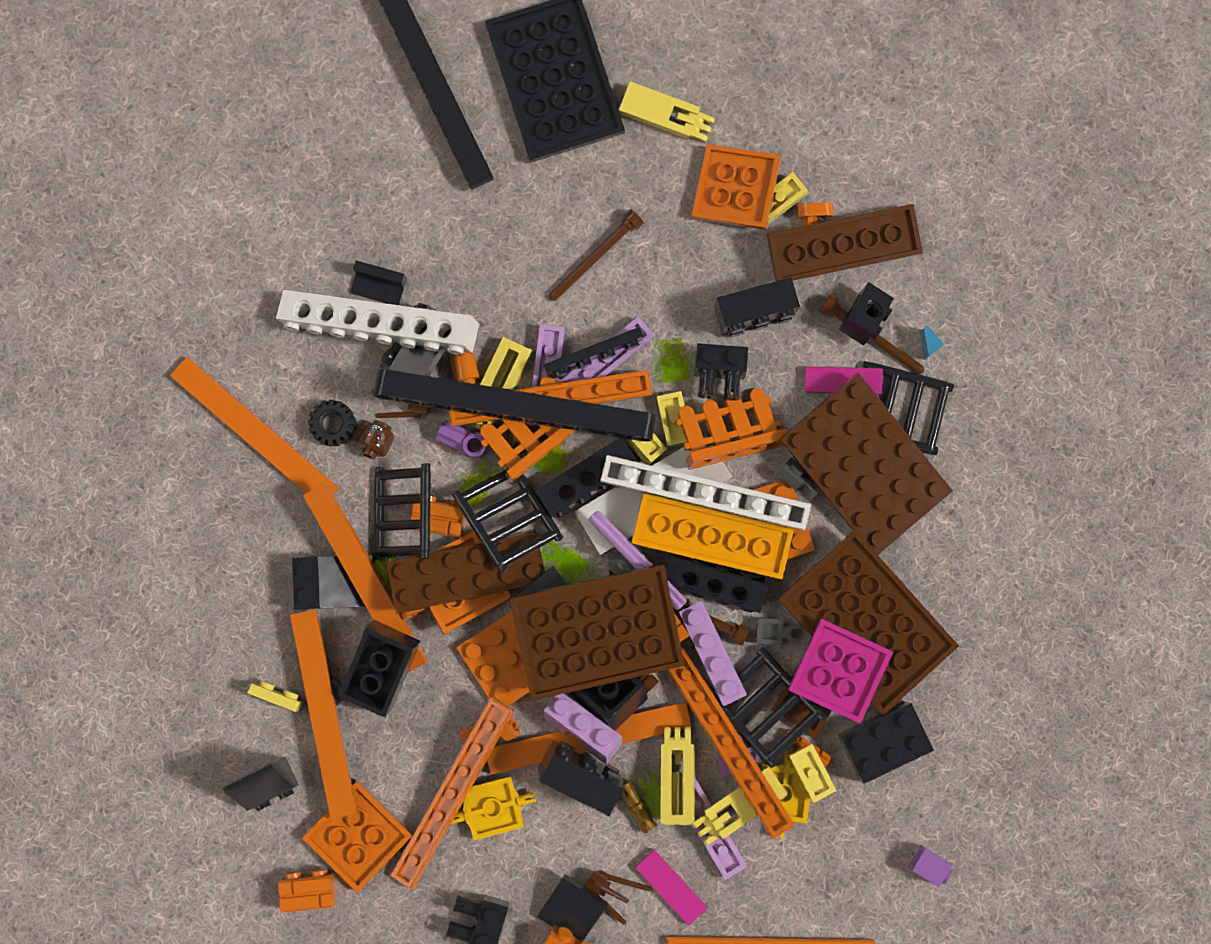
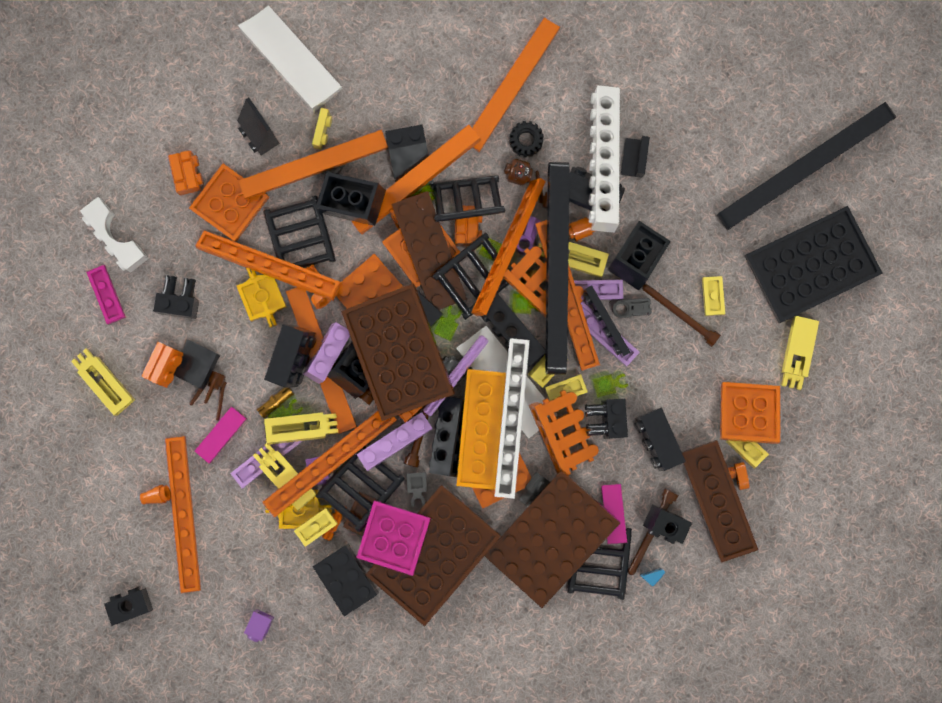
camera: 85 degrees right, 0 degrees up
(170, 726) = (290, 58): none -> white arch
(400, 717) = (319, 220): none -> black bar
(476, 466) = (508, 247): none -> orange tile
(511, 298) = (639, 255): none -> black slope
(577, 210) = (713, 296): none -> light yellow plate
(578, 315) = (634, 307): none -> dark grey piece

